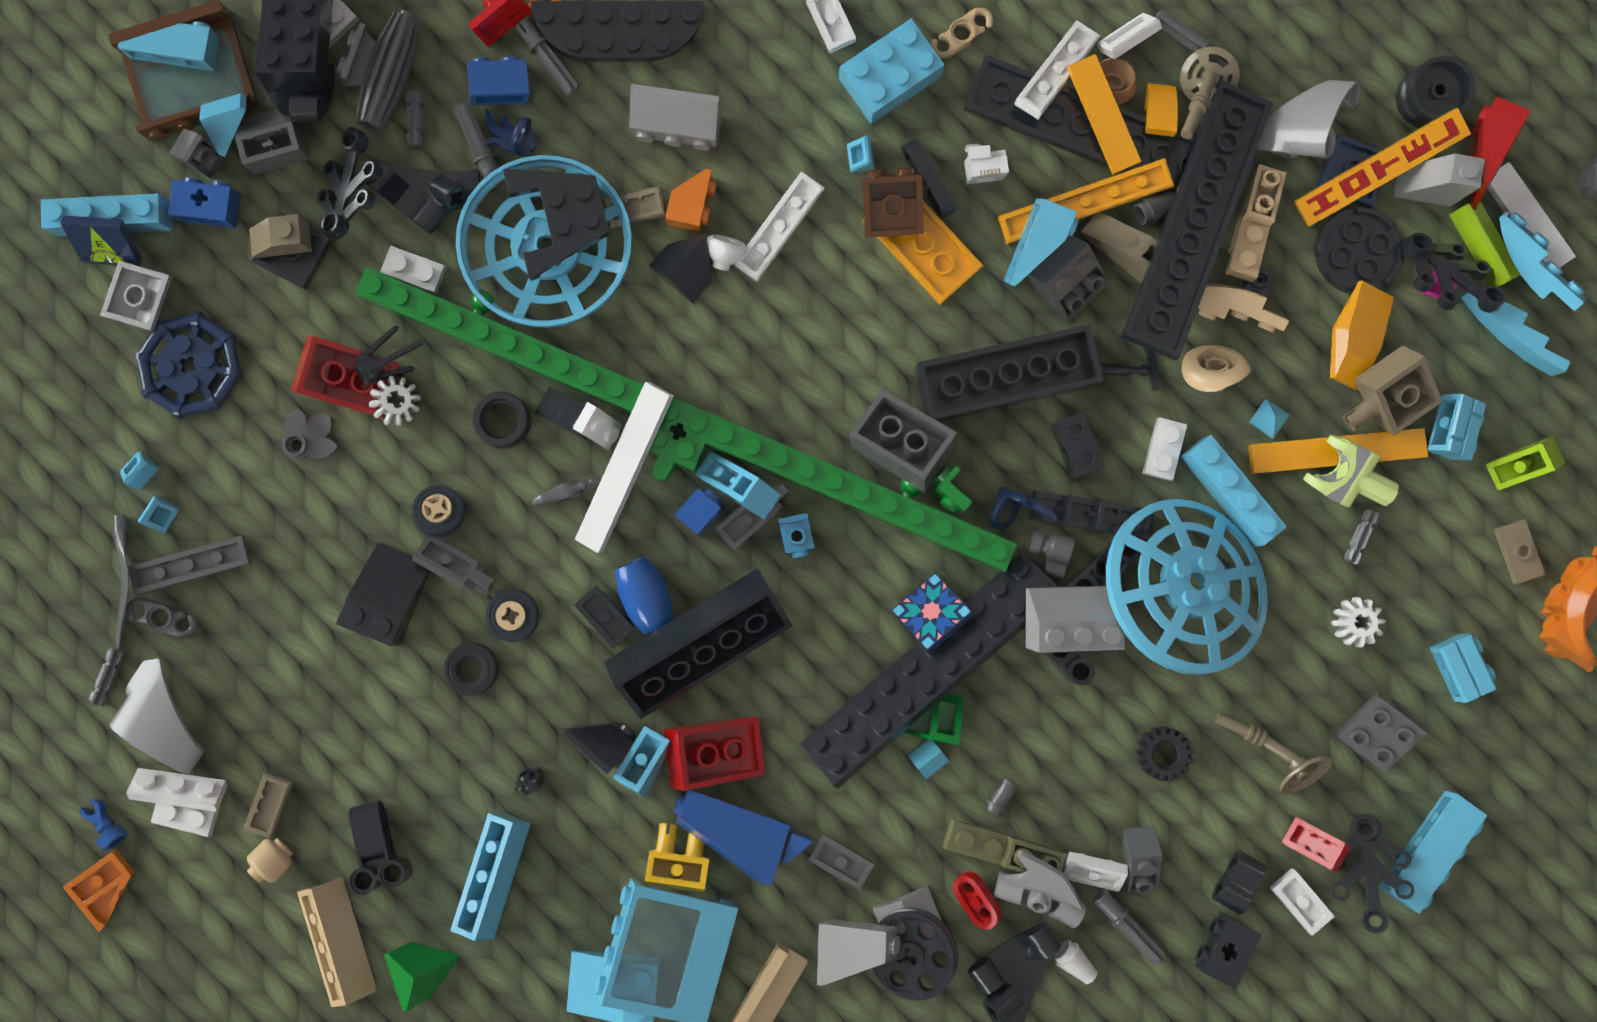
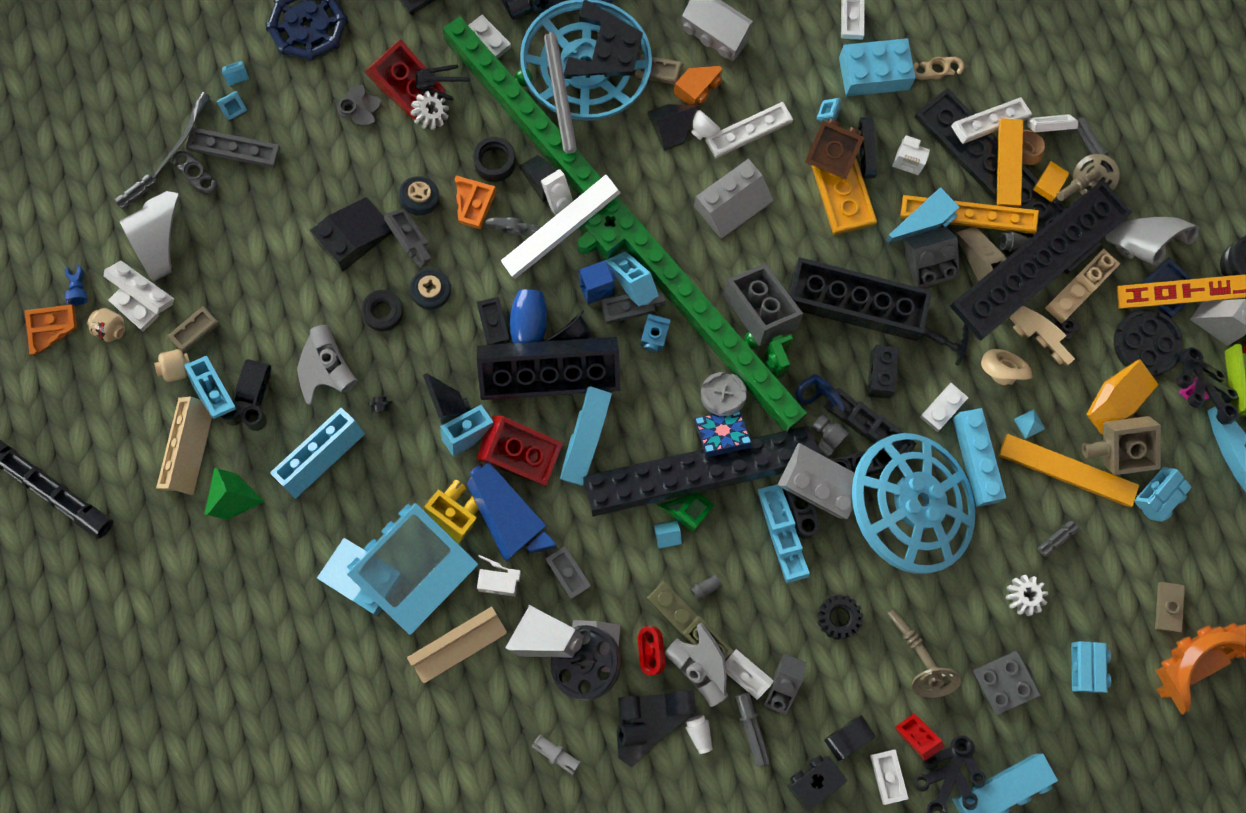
camera: 20 degrees right, 10 degrees down
(166, 854) = (106, 325): none -> tan head
(327, 870) = (209, 387): none -> medium azure slope
(430, 778) = (316, 371): none -> light grey pin
(505, 484) = (473, 201): none -> orange wing
(537, 304) = (560, 93): none -> light grey axle
(702, 583) = (573, 330): none -> black piece
(769, 914) = (498, 582): none -> white piece
(780, 697) = (585, 436): none -> medium azure slope
(805, 324) = (733, 199): none -> light grey slope
(909, 565) = (723, 394): none -> light grey tile
(1056, 692) = (783, 533): none -> medium azure slope
(1354, 476) = (1072, 490): yellowish green connector -> none
(1525, 463) = (1202, 545): lime slope -> none

